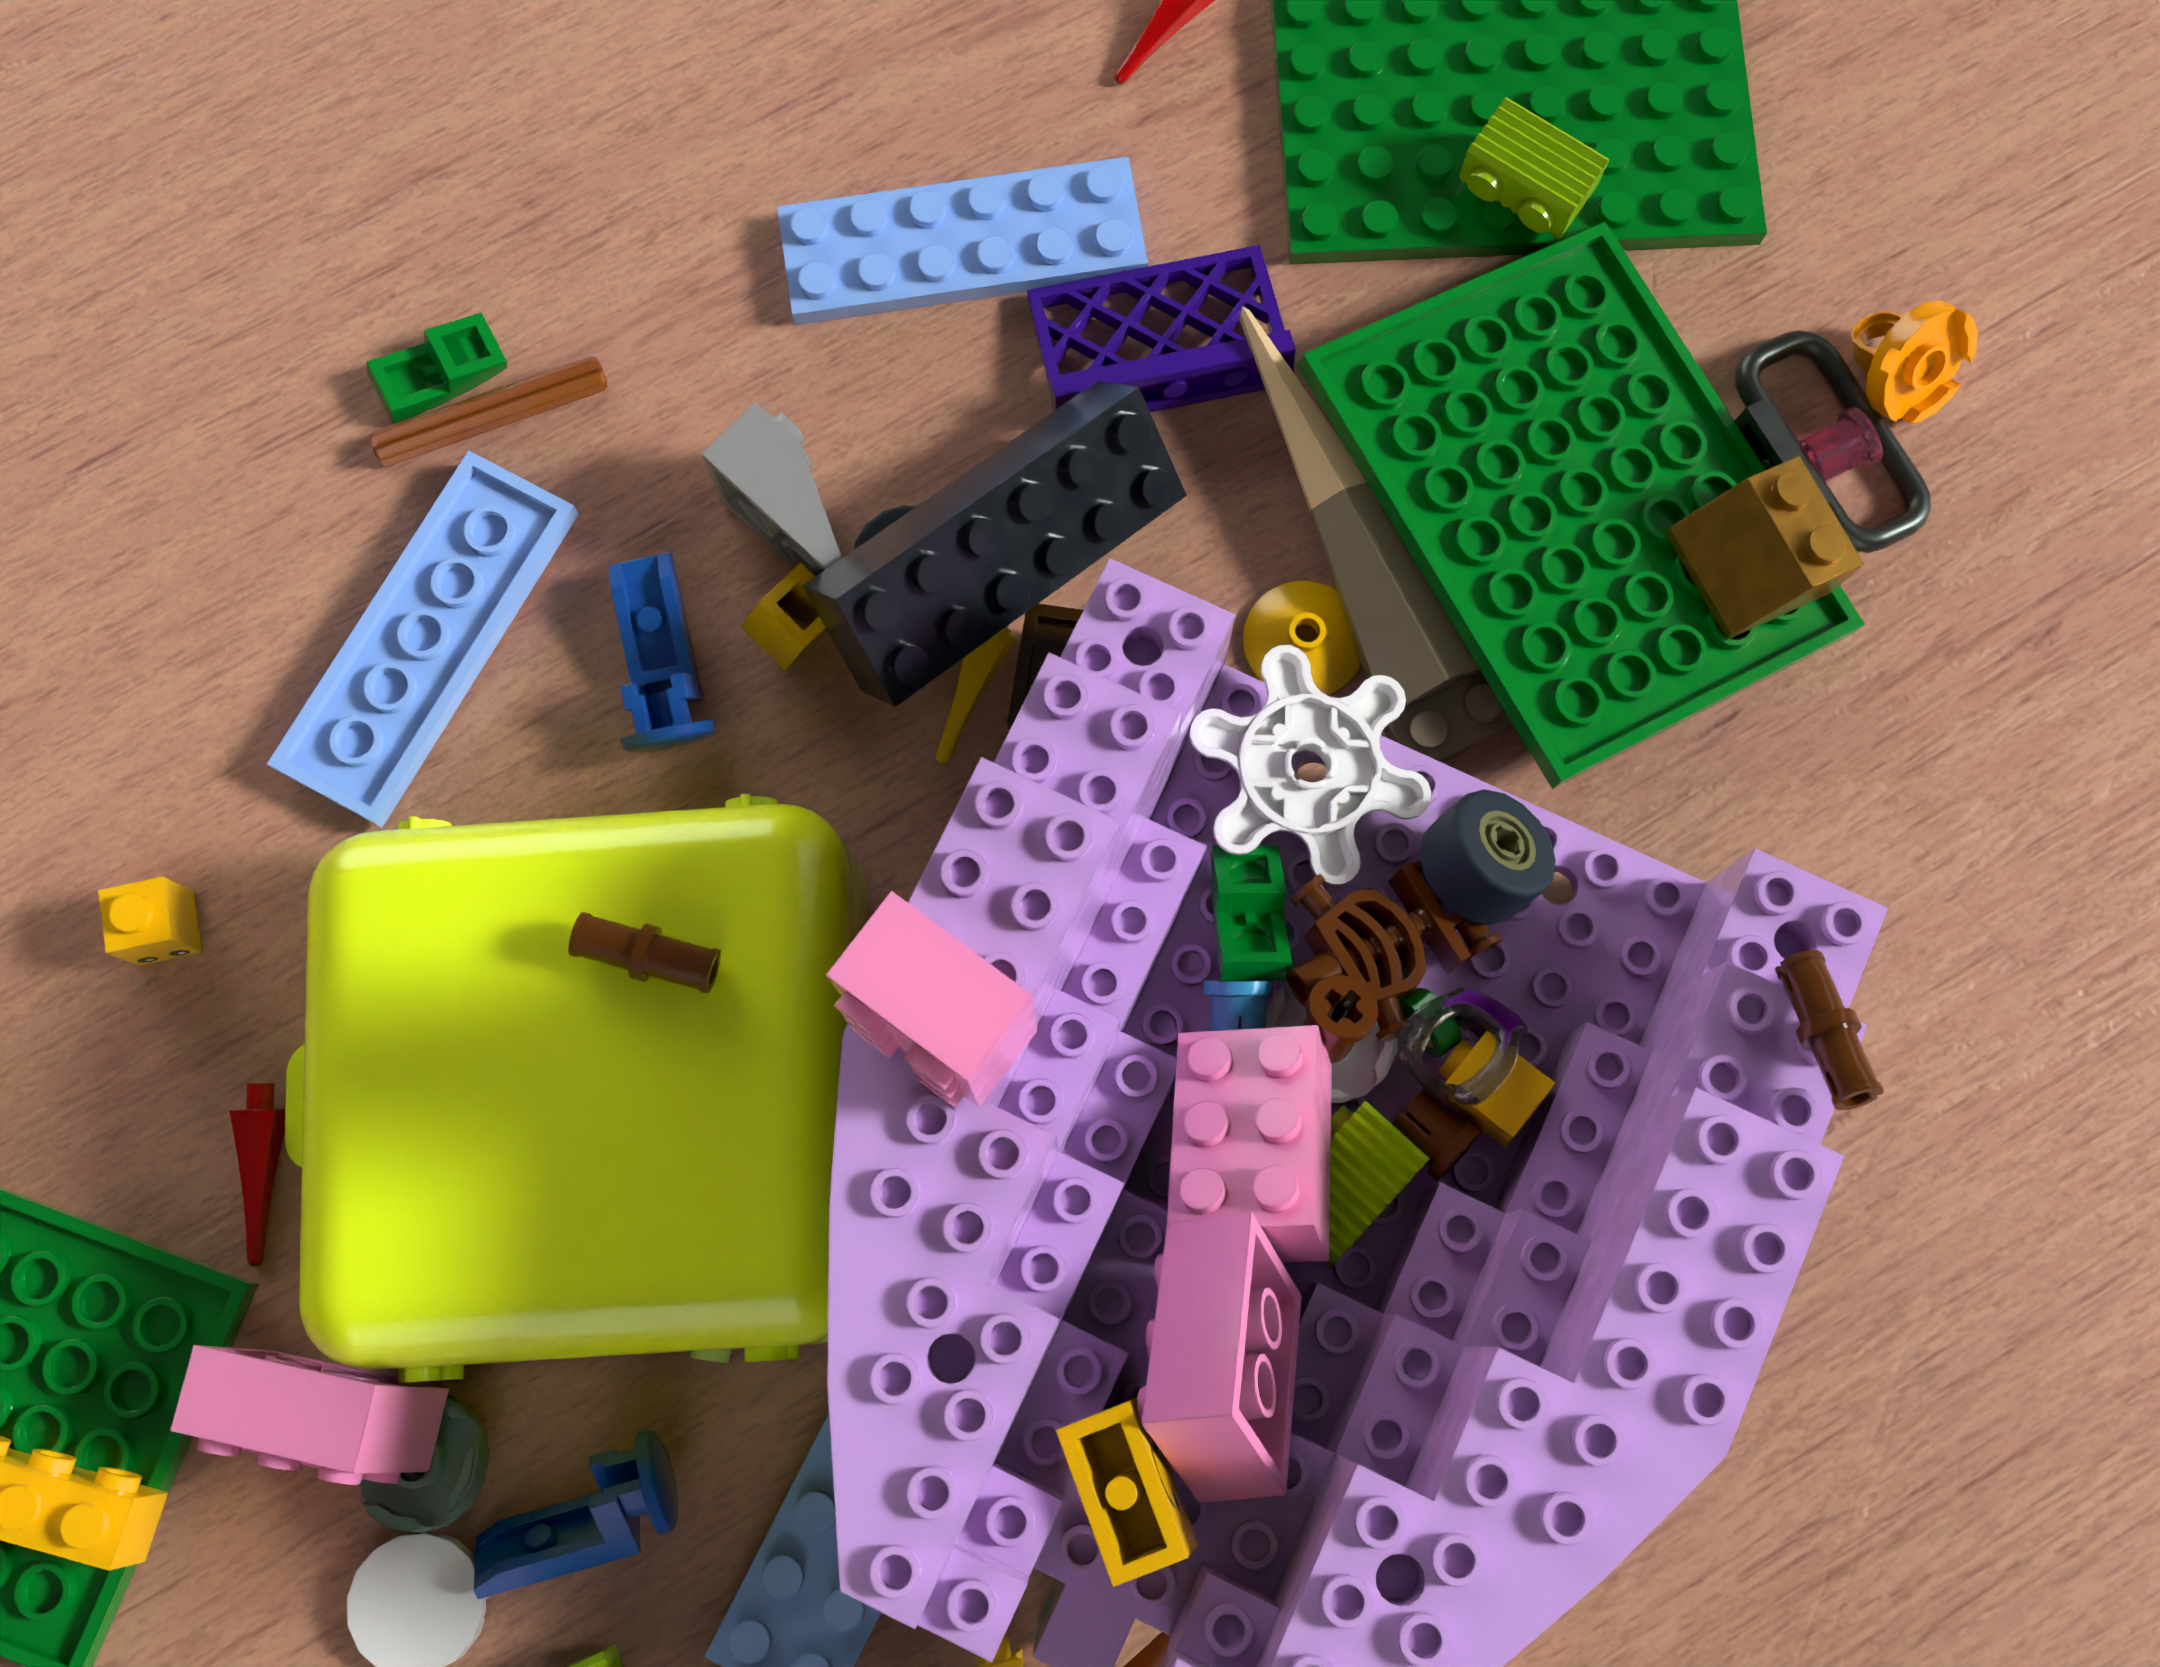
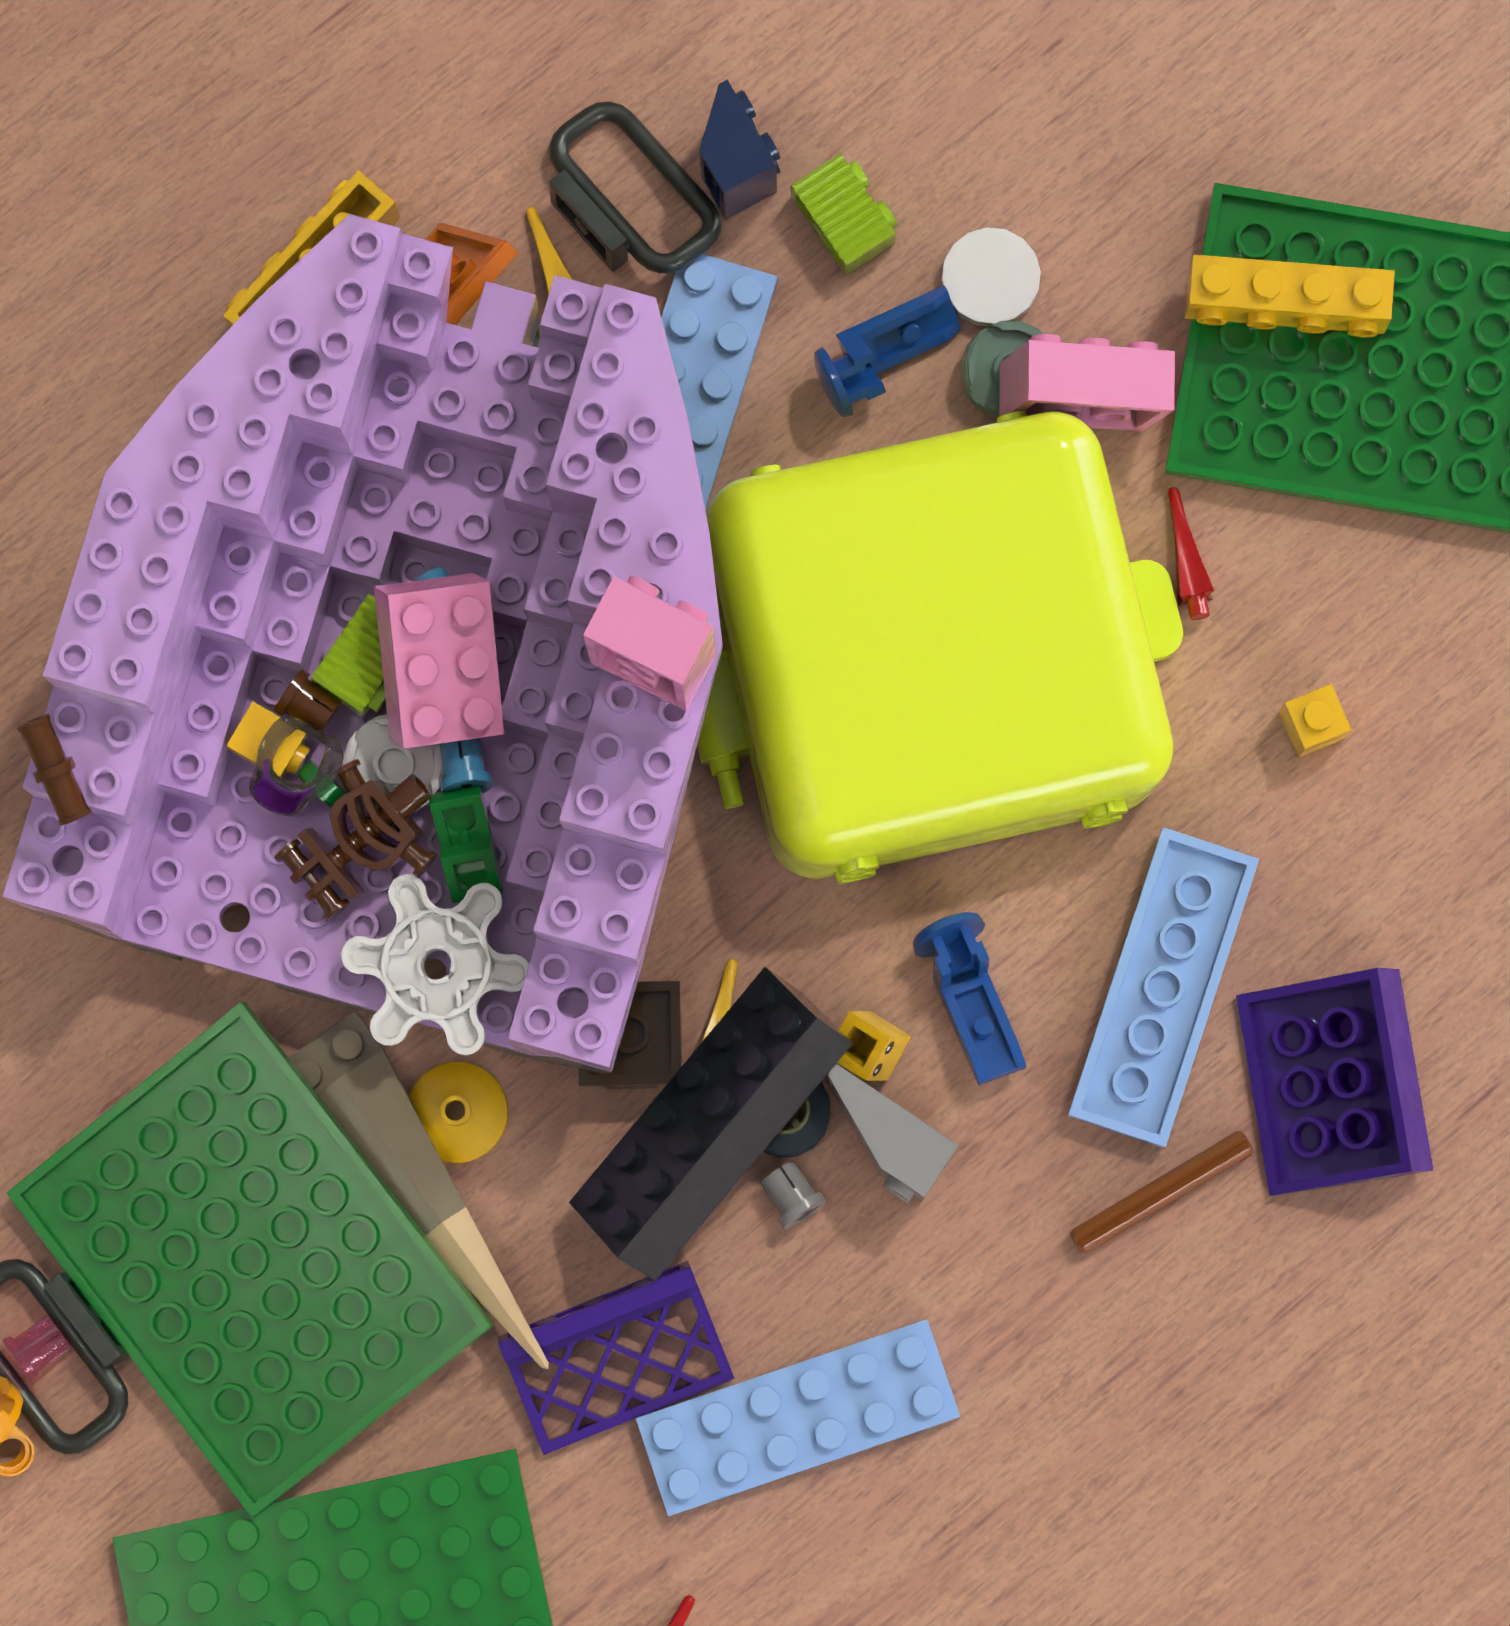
camera: 175 degrees right, 5 degrees up
(252, 493) = (1334, 1081): none -> dark purple slope
(442, 368) = (1215, 1223): green slope -> none
(644, 952) = (896, 716): reddish brown pin -> none
(917, 466) = (792, 1195): none -> light grey bush
(1127, 1493) = (487, 400): yellow brick -> none
(1222, 1359) = (437, 500): bright pink brick -> none
(1327, 1006) = (374, 767): reddish brown bush -> none
(1487, 857) = (293, 909): black wheel -> none
(1532, 169) = (320, 1542): lime brick -> none
(1764, 548) = (98, 1226): pearl gold slope -> none

